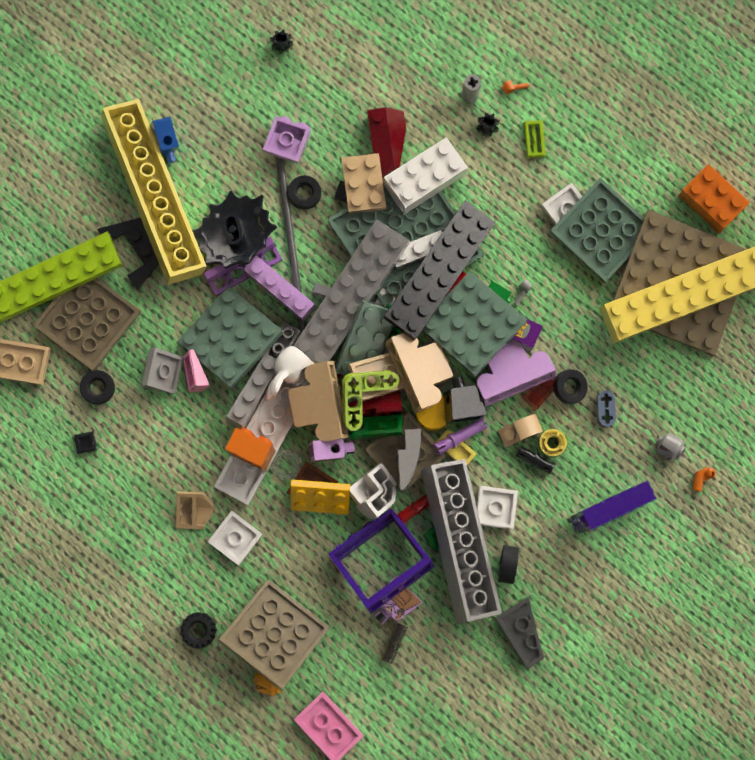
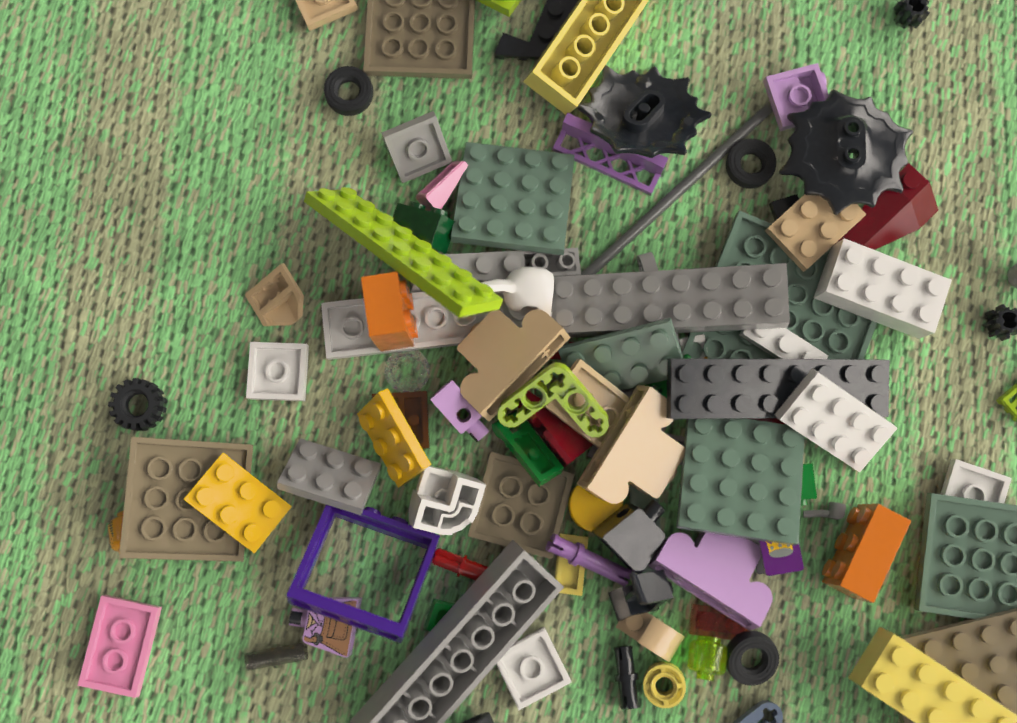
camera: 55 degrees right, 0 degrees up
(85, 442) = (275, 123): black tile -> none
(211, 400) = (426, 225): none -> dark green brick
(221, 418) = (404, 252): none -> lime plate
(280, 288) = (613, 213): lavender brick -> none
(295, 607) = (237, 502): none -> yellow plate
(316, 547) = (329, 476): none -> light grey plate
(323, 148) = (828, 136): none -> black piece
(409, 457) = (513, 516): light grey slope -> none
(477, 252) = (835, 420): none -> white plate
(499, 418) = (643, 596): none -> black piece
(554, 409) = (707, 657): none -> clear neon green head
(555, 287) = (865, 551): none -> orange brick

